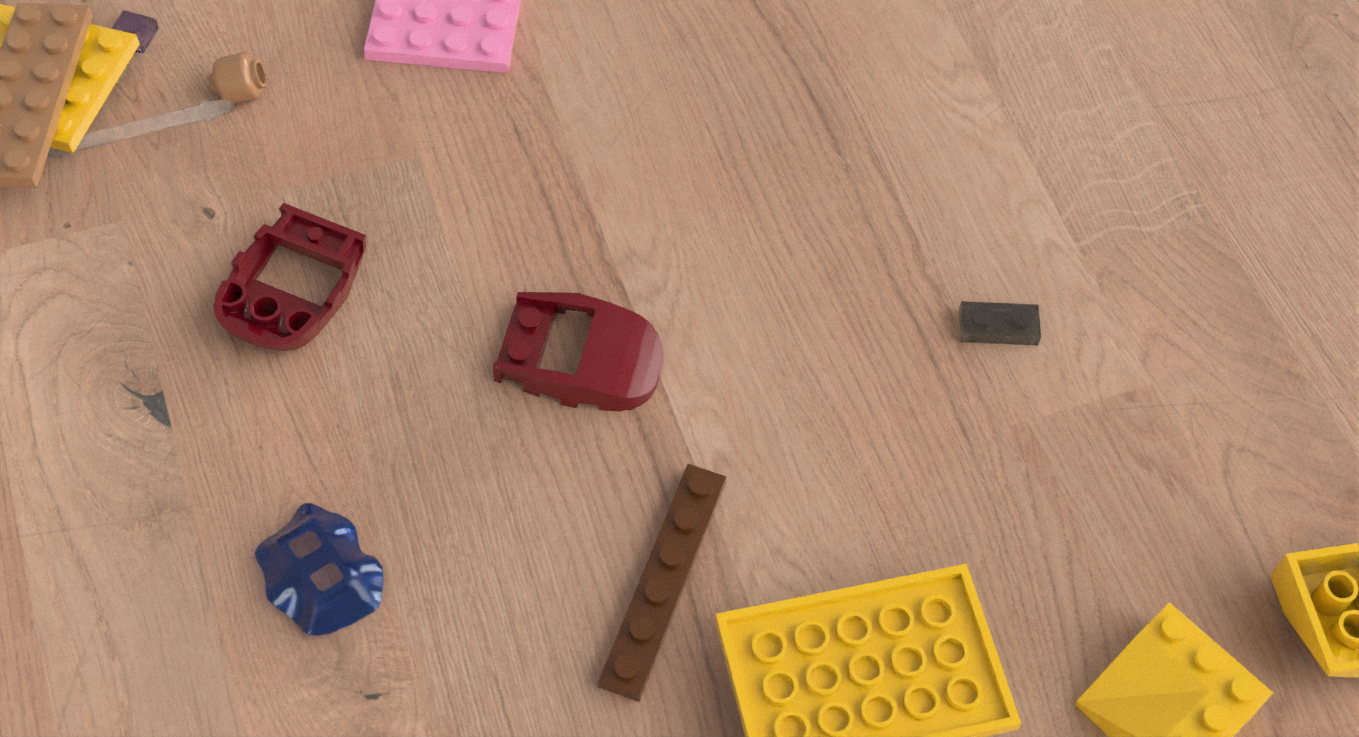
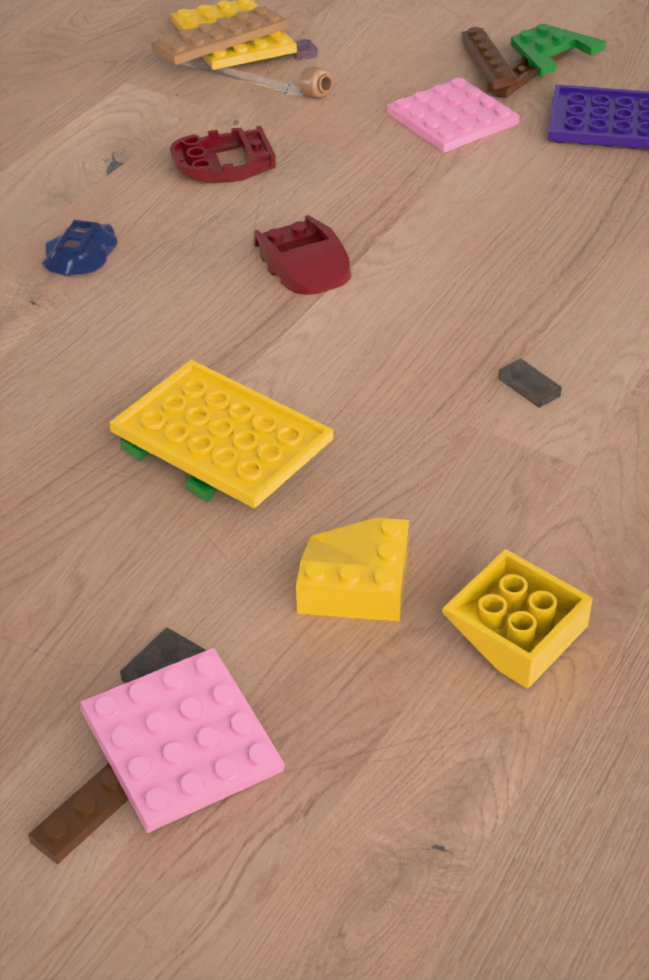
camera: 55 degrees right, 15 degrees down
(662, 583) = (203, 350): reddish brown plate -> none

